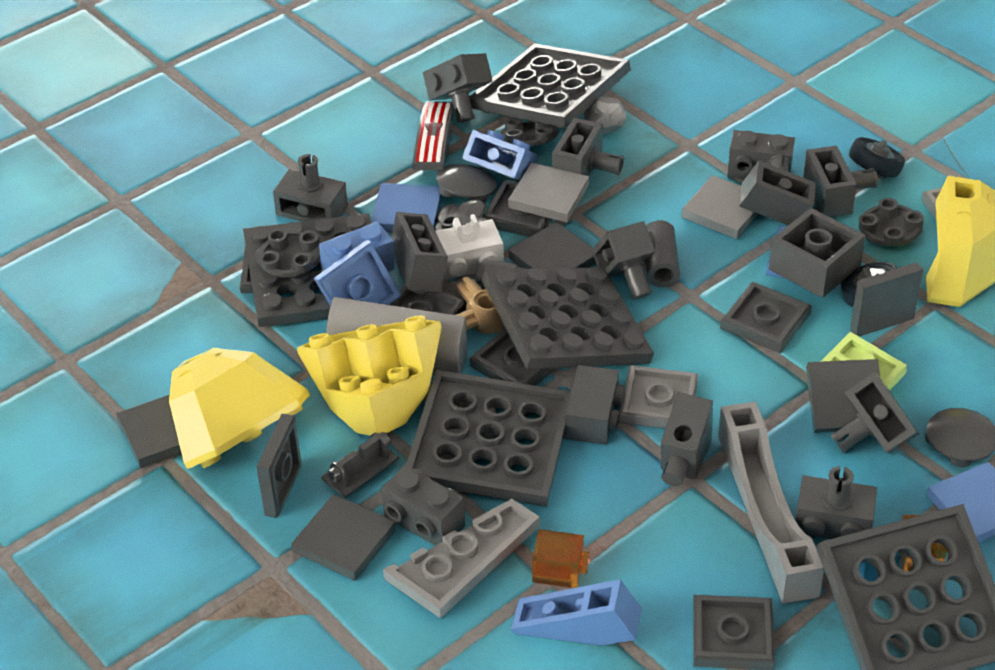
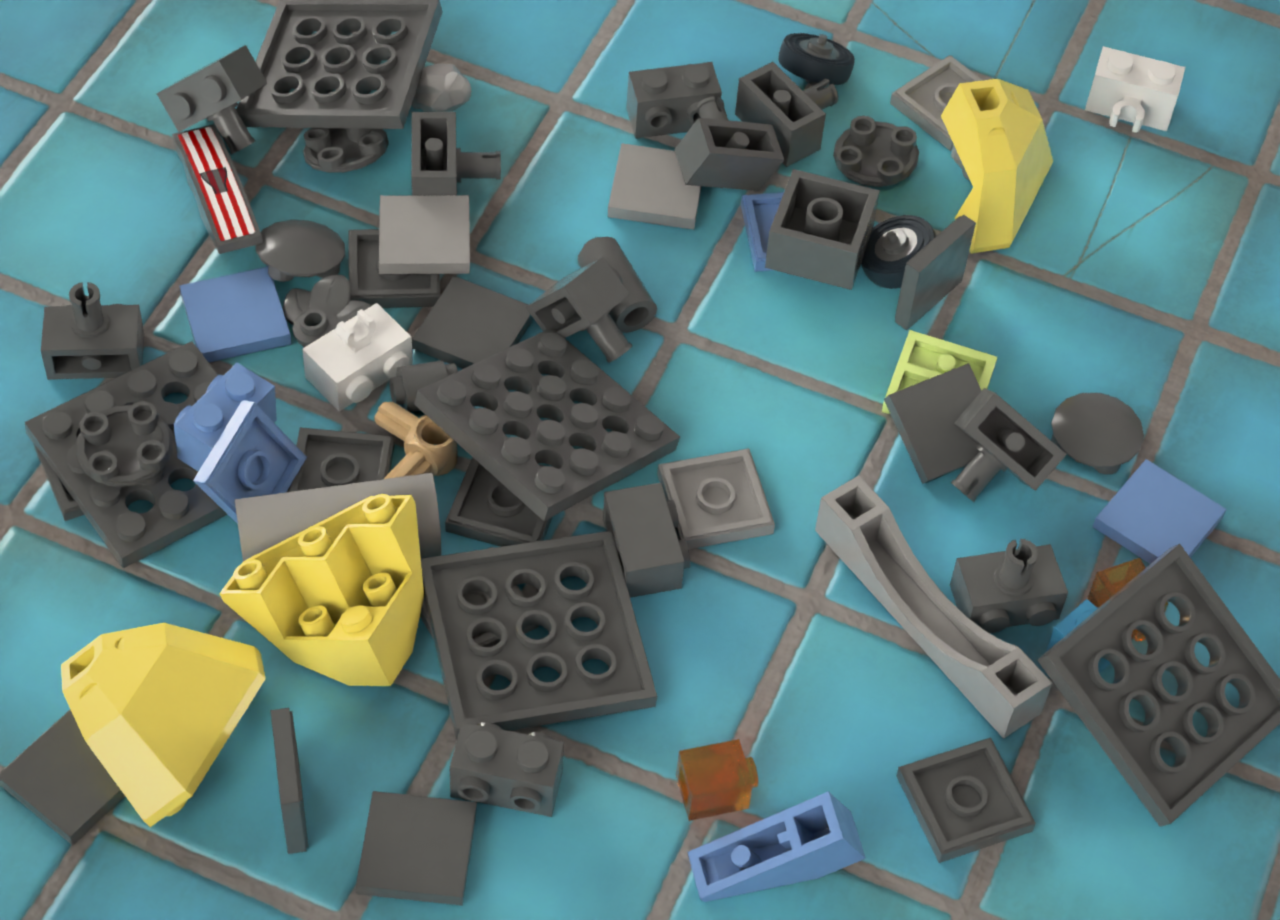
camera: 30 degrees left, 10 degrees up
(360, 466) = (385, 735): dark grey hinge -> none
(418, 252) = (308, 386): dark grey brick -> none
(454, 567) = (586, 836): light grey wing -> none
(499, 156) = (332, 198): medium blue brick -> none
(682, 448) = (792, 554): dark grey torso -> none
(766, 317) = (788, 336): dark grey tile -> none

